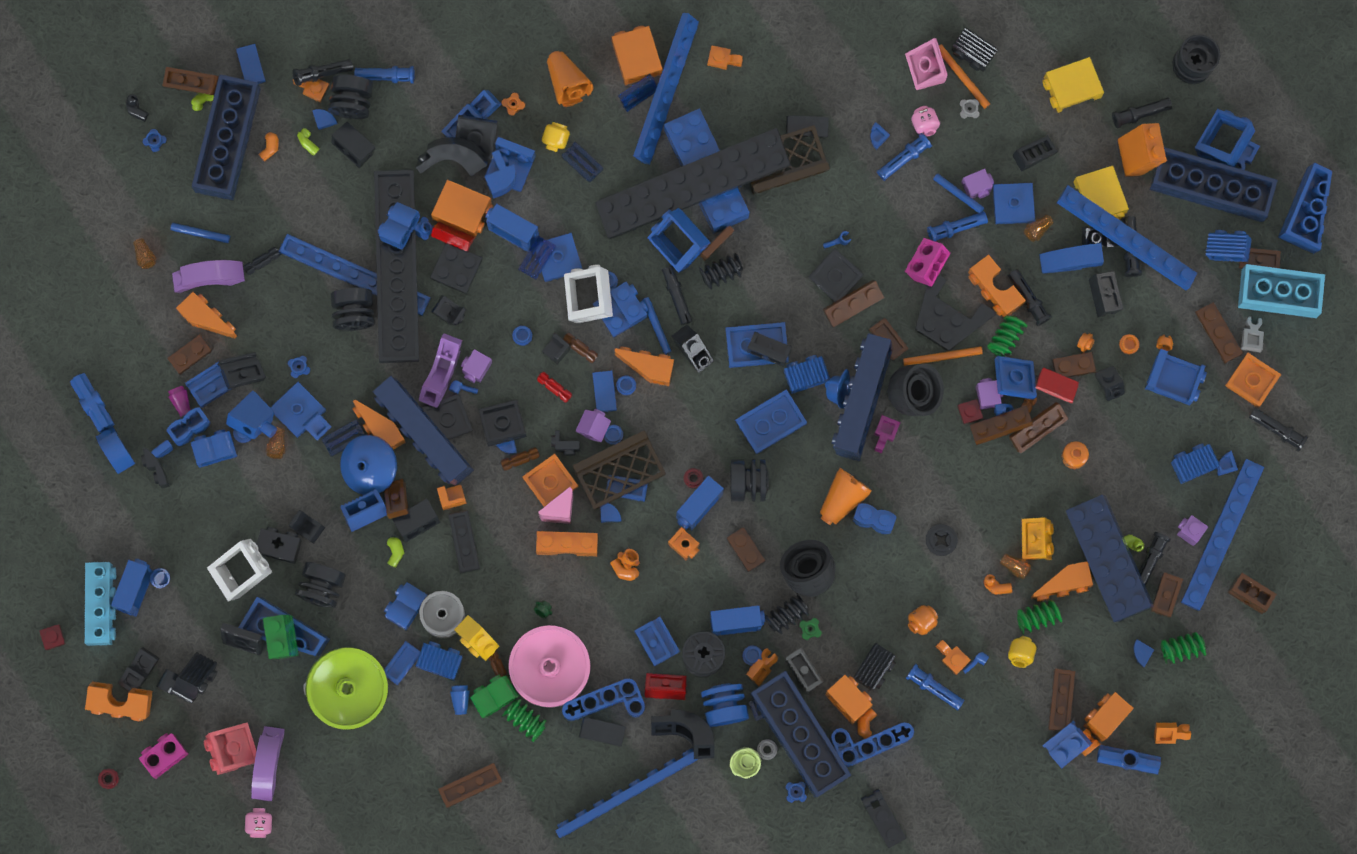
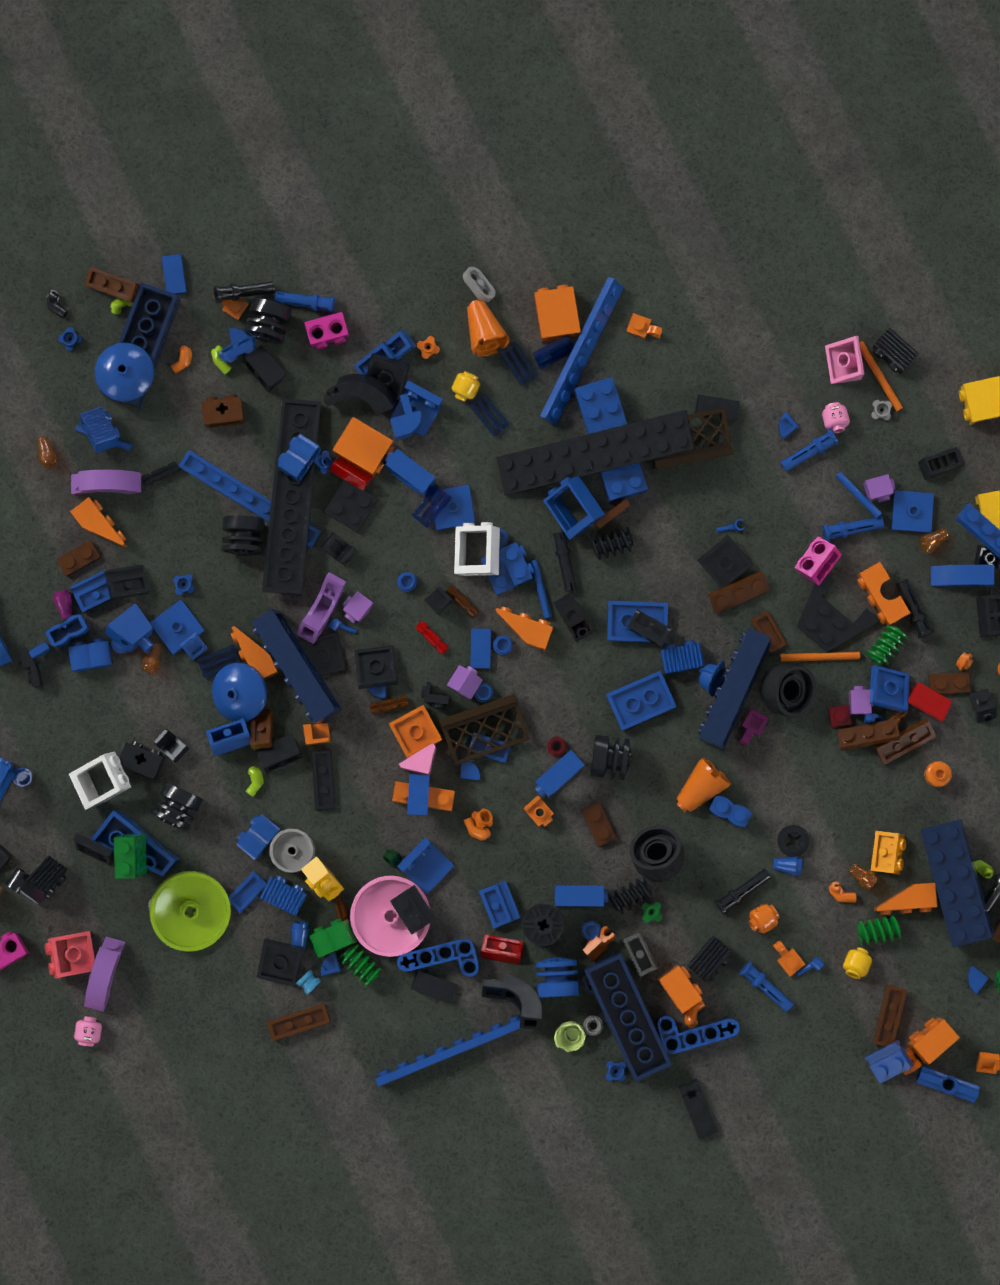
camera: 15 degrees right, 5 degrees up
(195, 224) = (99, 429): none -> blue brick
(214, 176) = (128, 384): none -> blue dish
(327, 191) = (233, 415): none -> reddish brown brick
(331, 124) = (231, 352): none -> blue plate
(408, 95) = (326, 325): none -> dark pink brick
(444, 728) = (280, 962): none -> black tile
(475, 744) = (308, 982): none -> dark azure wheel
(495, 724) = (330, 964): none -> blue tile
(555, 36) = (479, 284): none -> light grey plate
(561, 540) = (418, 794): none -> blue tile
(571, 656) = (413, 909): none -> black plate
(578, 612) = (425, 865): none -> blue bracket
(594, 96) = (526, 377): none -> clear blue tile
(892, 602) = (735, 897): none -> black pin
(940, 564) = (788, 865): none -> blue cone

